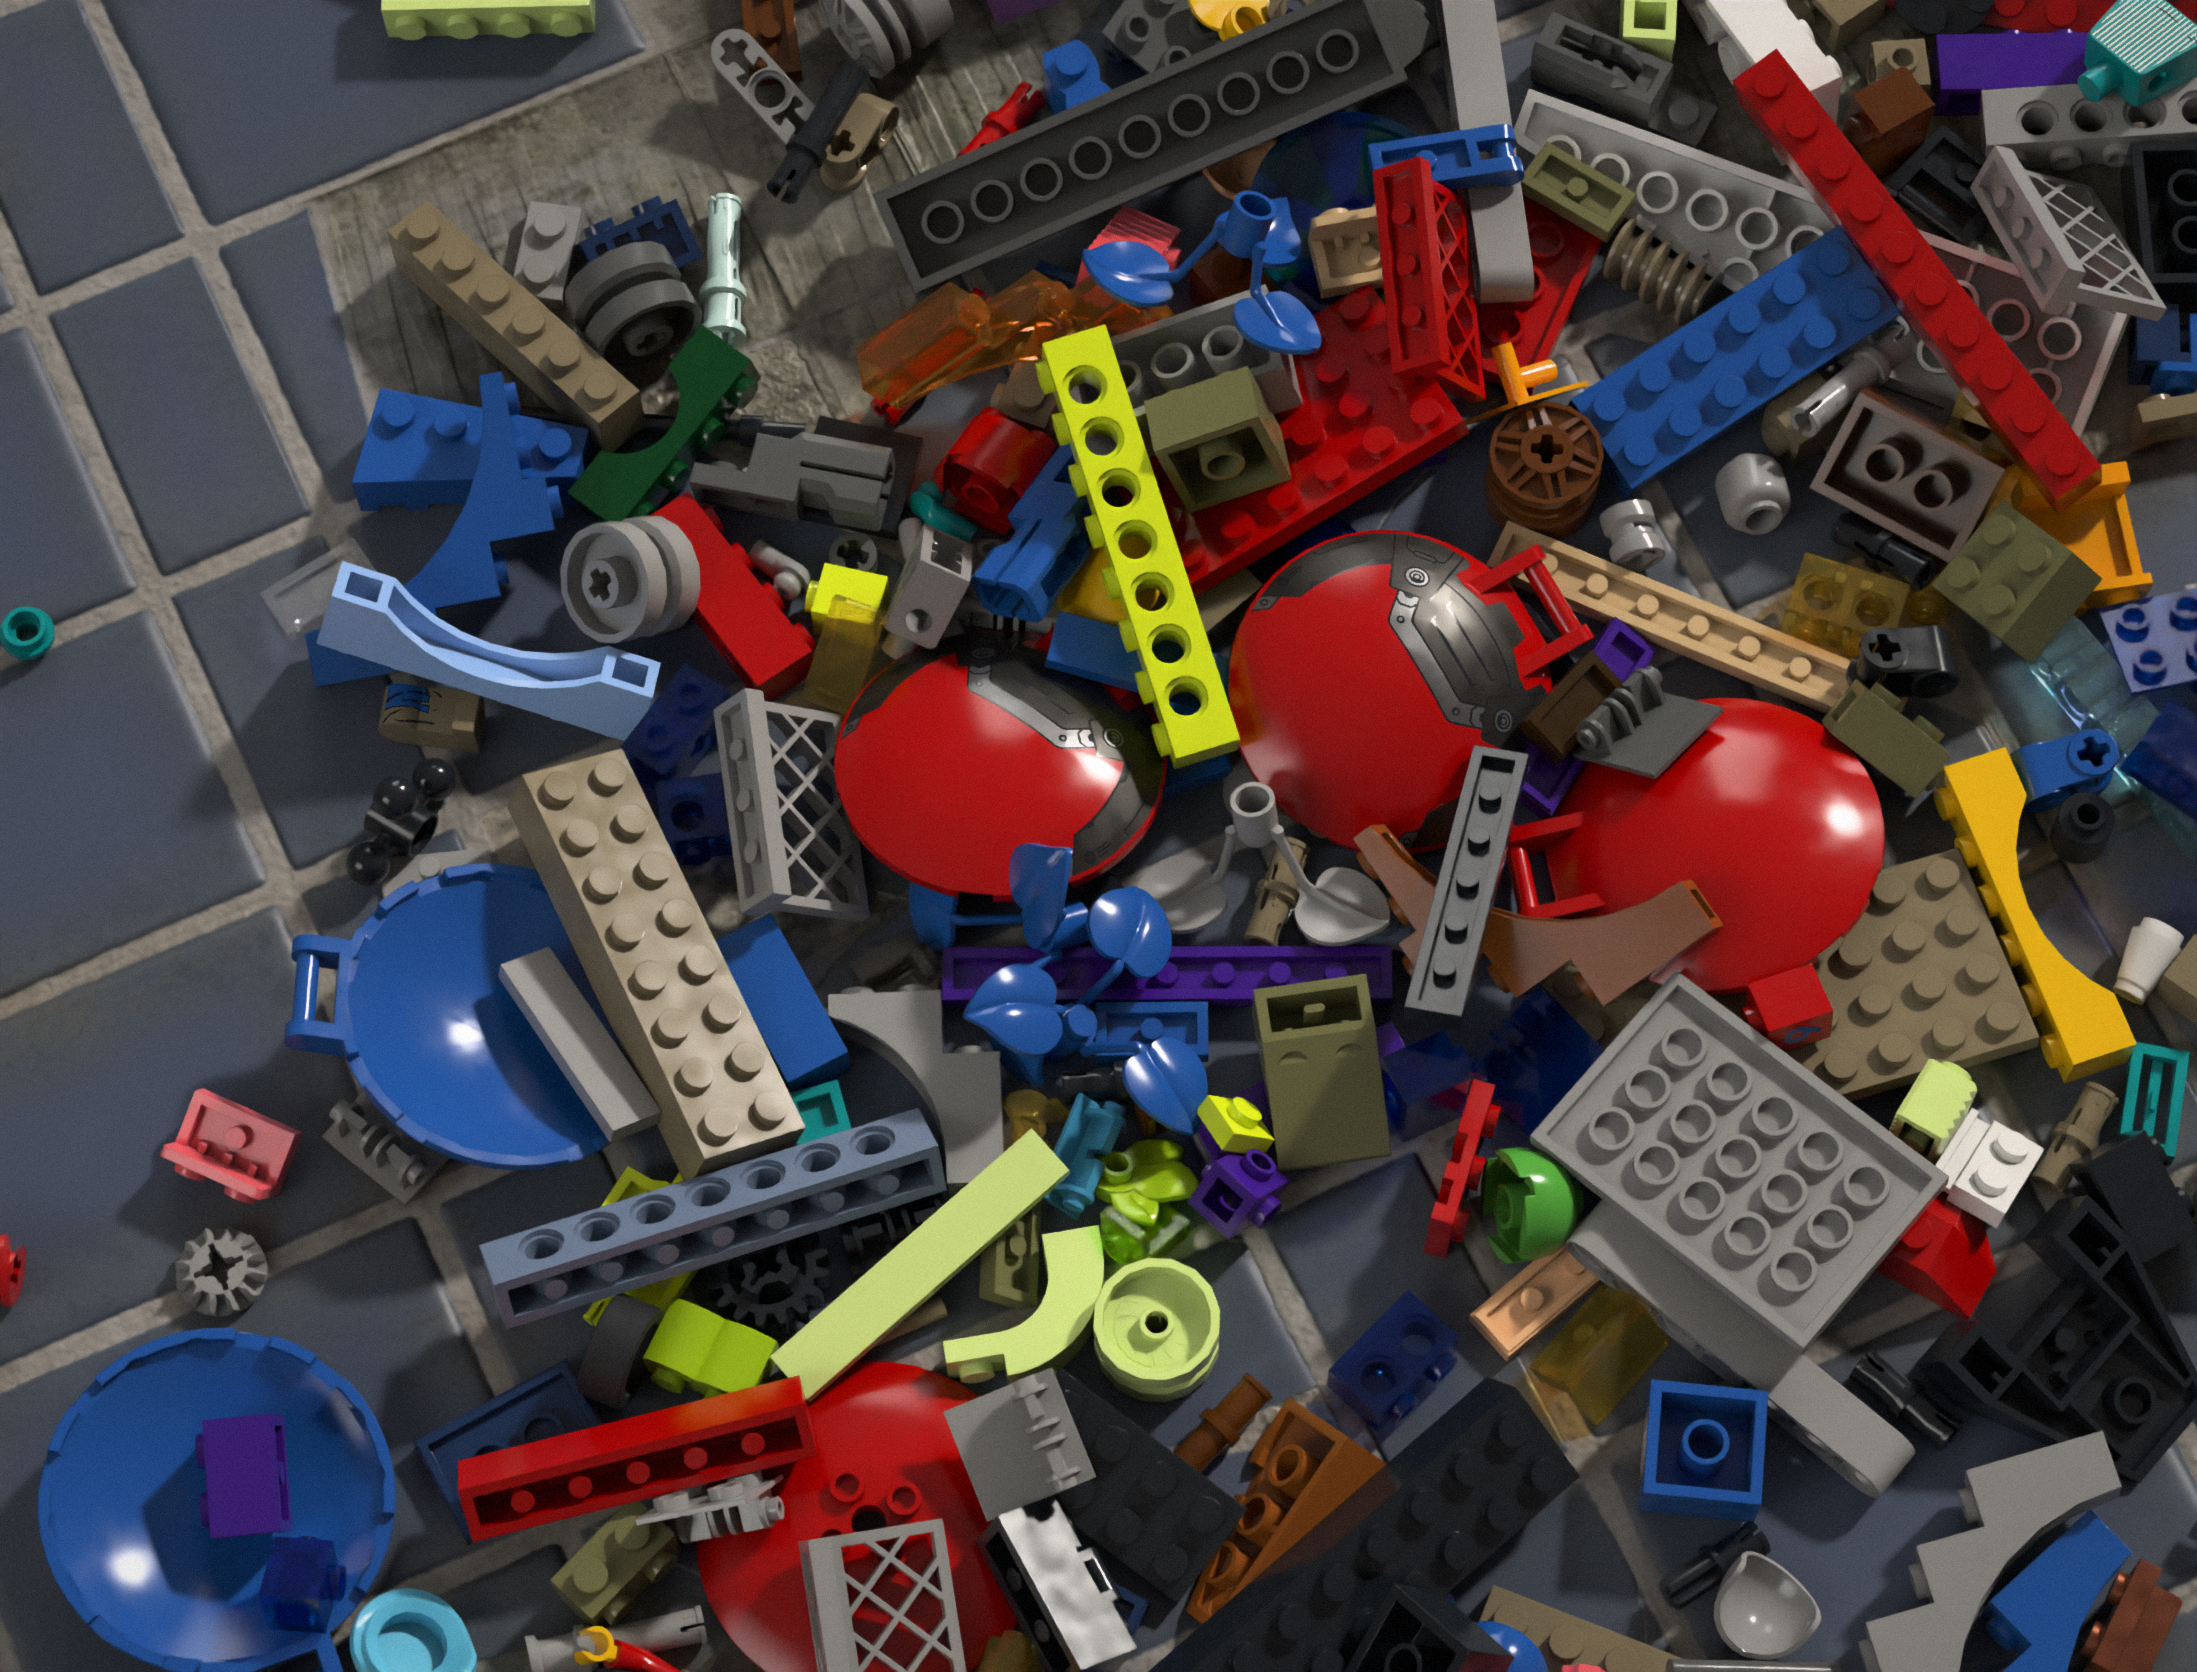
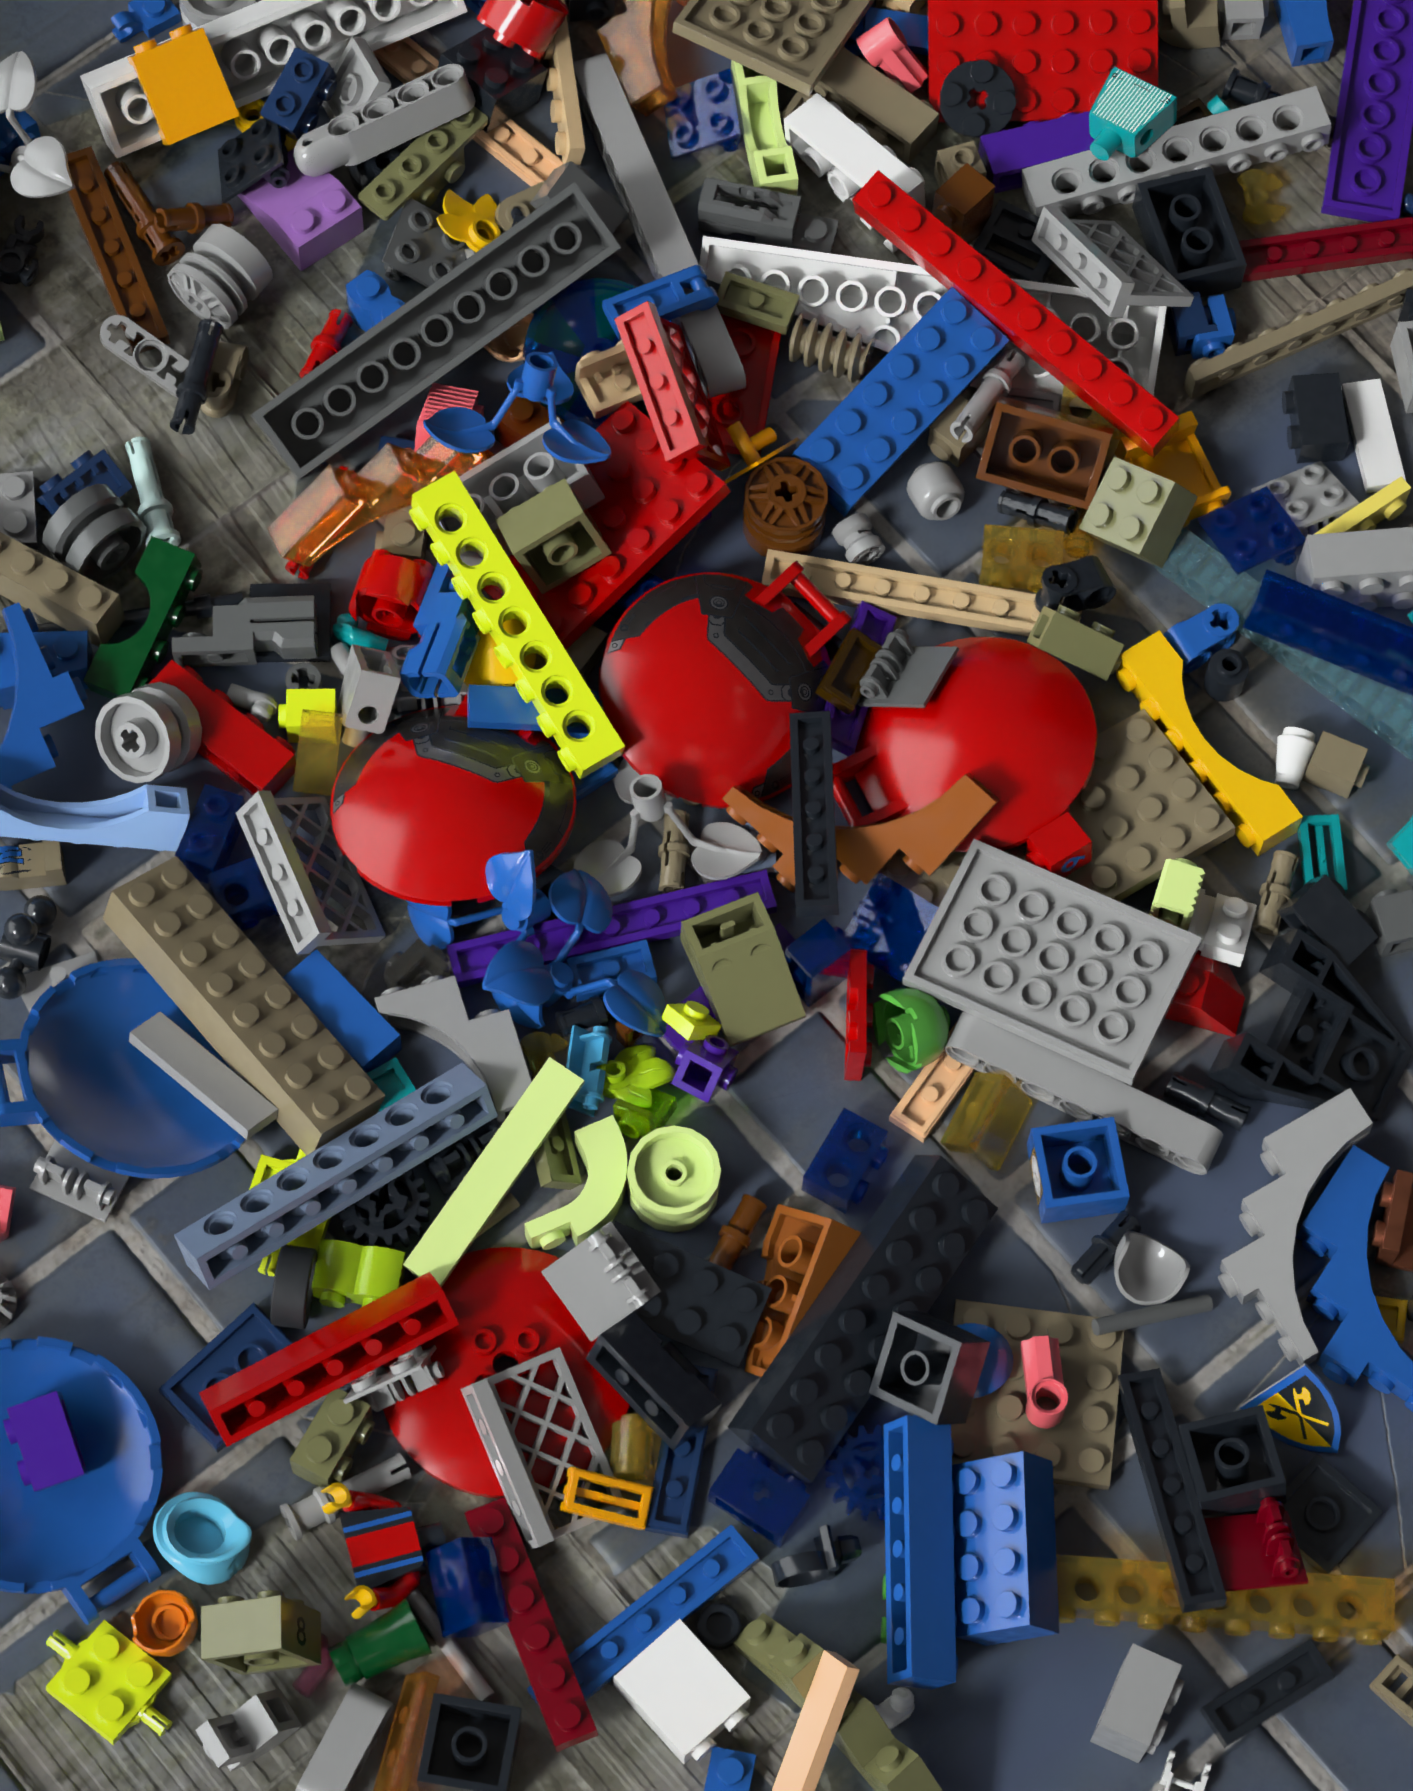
camera: 20 degrees left, 0 degrees up
(301, 1584) = (110, 1507): clear blue brick -> none

